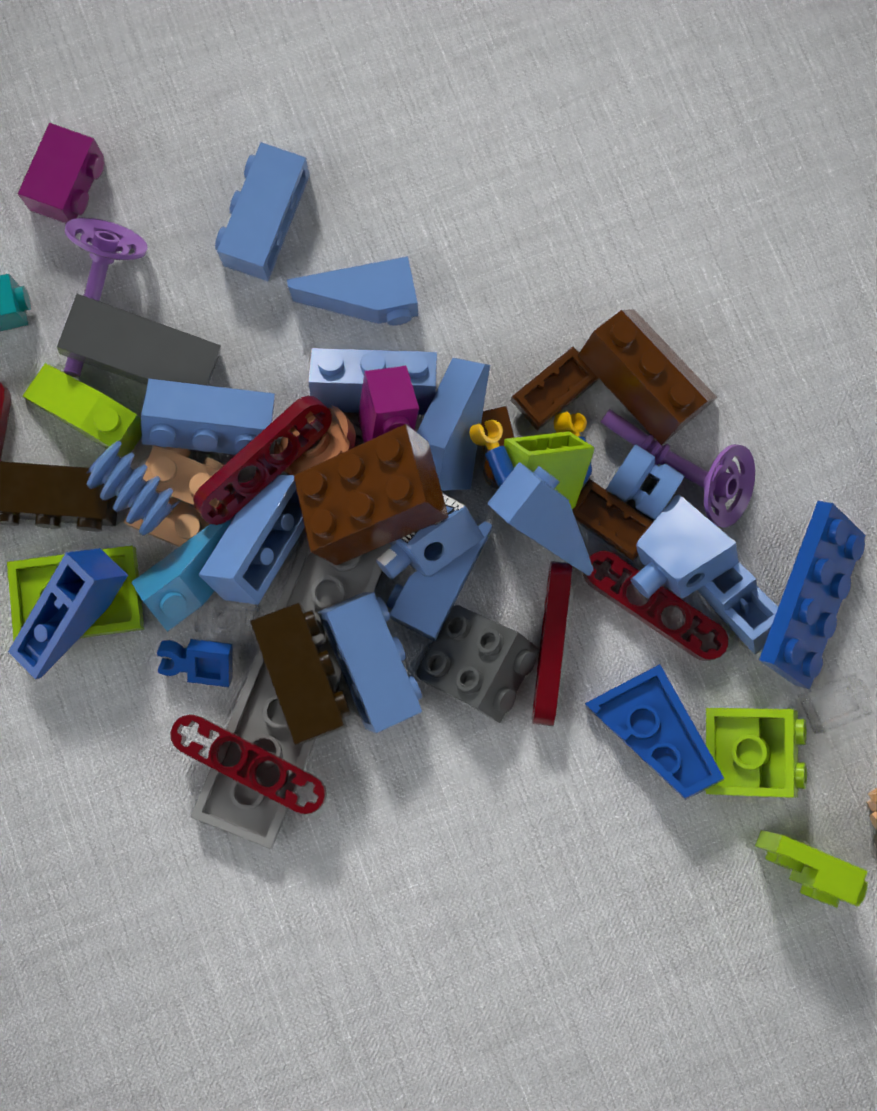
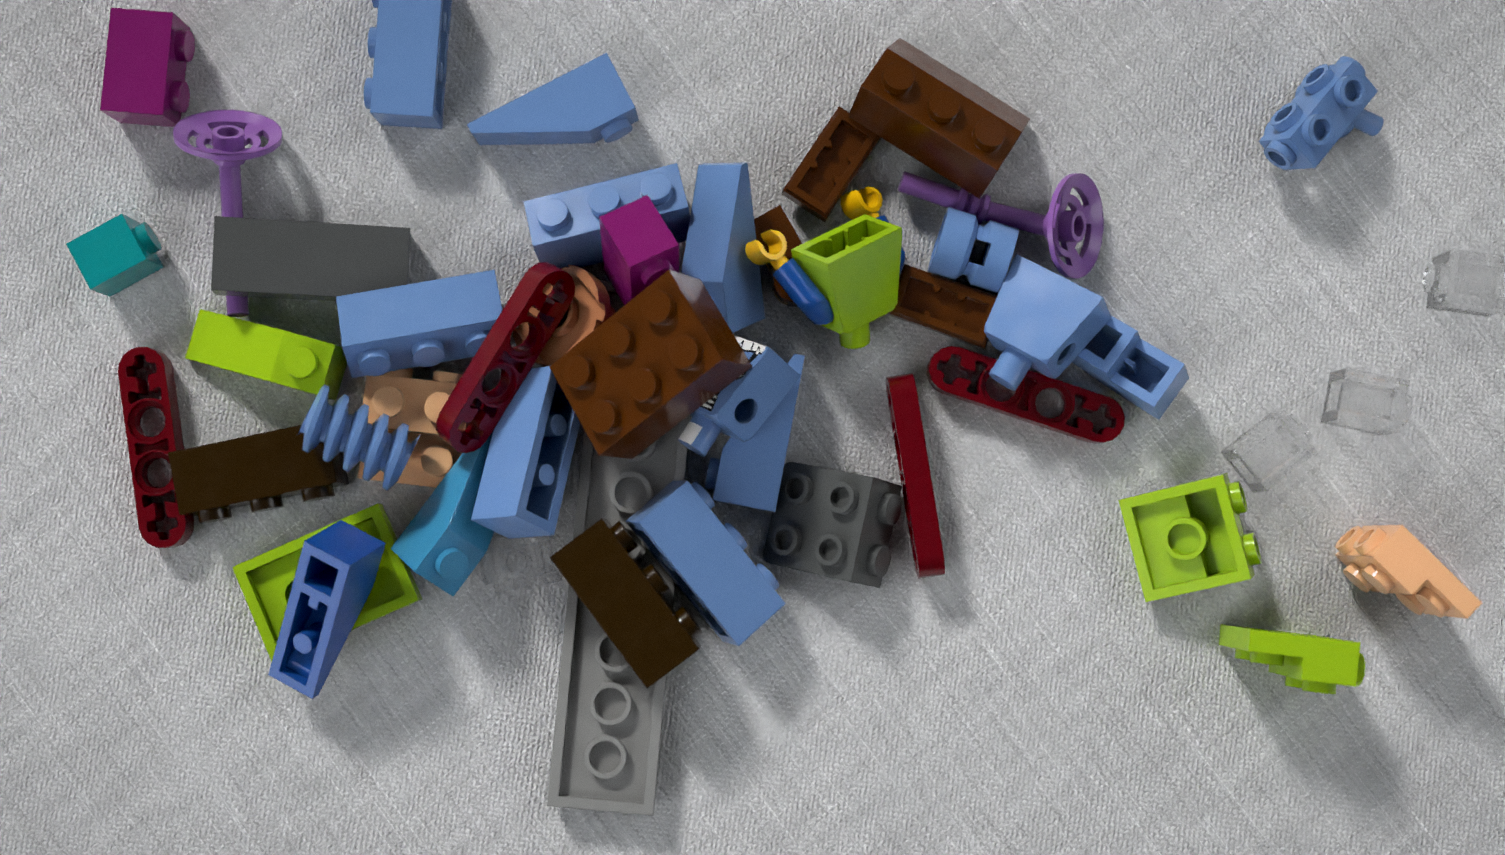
camera: 15 degrees left, 5 degrees up
(202, 661) = (504, 617): blue plate -> none
(246, 769) = (596, 732): dark red beam -> none
(542, 513) = (860, 328): medium blue slope -> none
(659, 730) = (1070, 542): blue wing -> none
(813, 596) = (1211, 330): blue plate -> none

